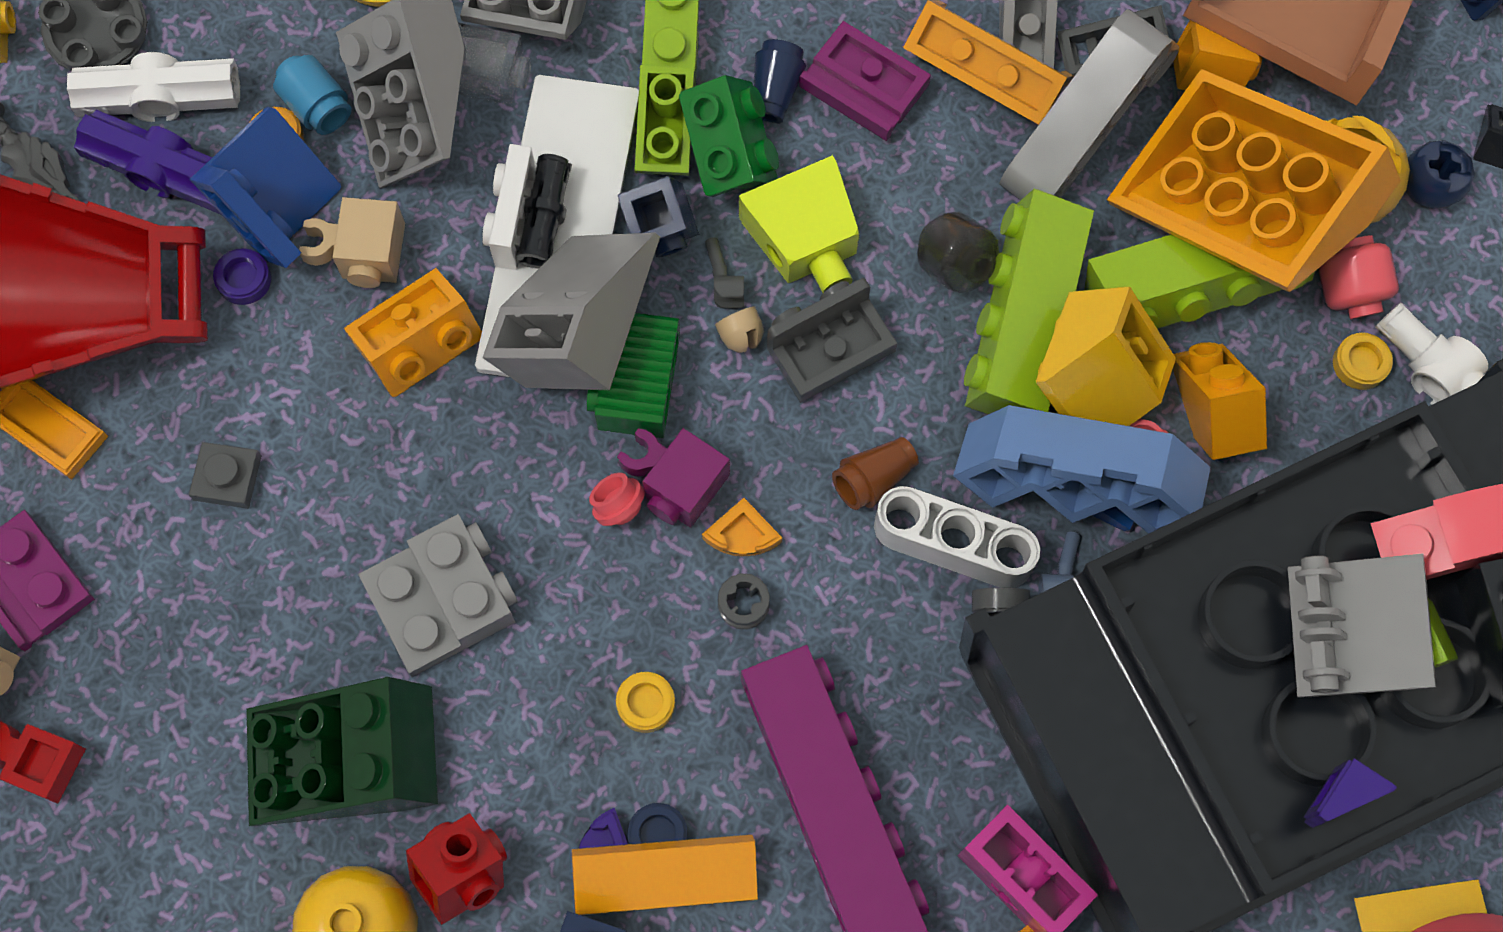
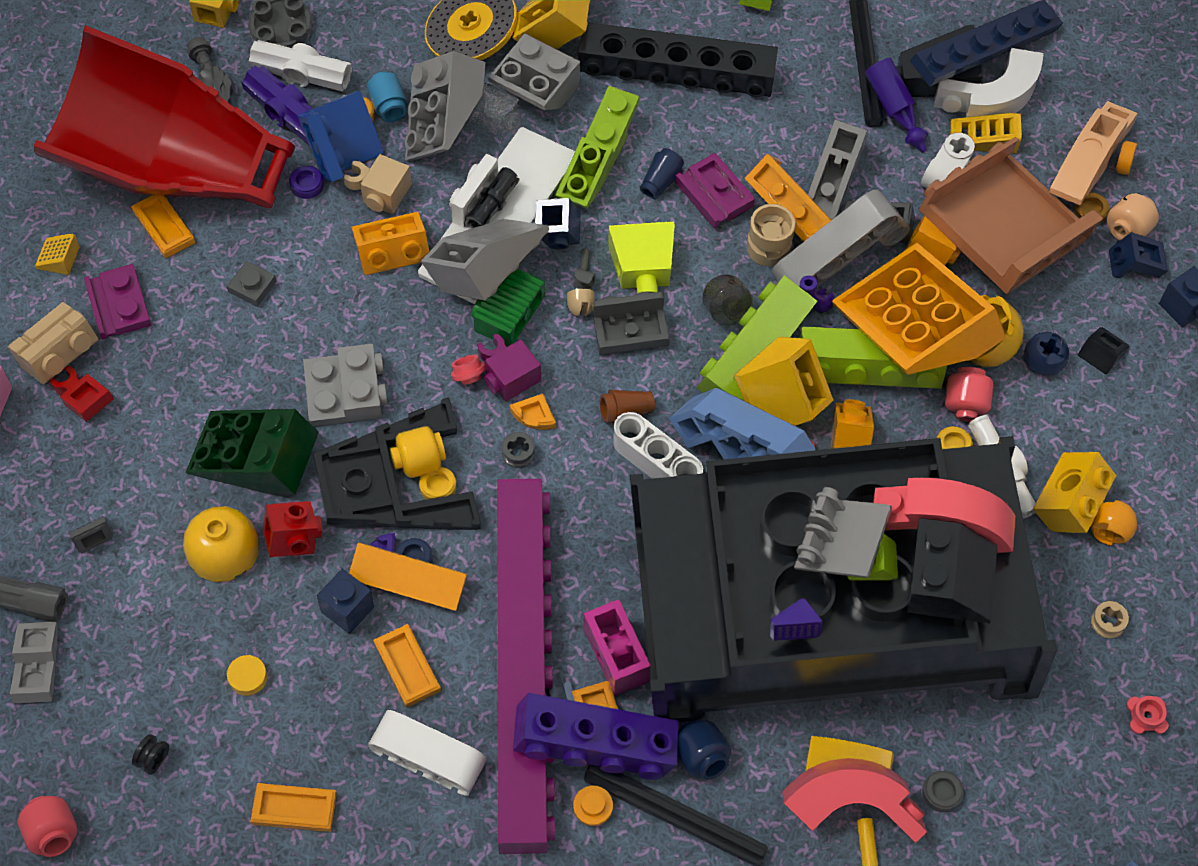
camera: 20 degrees right, 10 degrees down
(532, 750) = (361, 485): none -> black wing
(599, 665) = (418, 452): none -> yellow head
(729, 135) = (618, 191): green bracket -> none
(979, 125) = (770, 234): none -> tan wheel
(1077, 191) = (824, 301): none -> dark purple arm

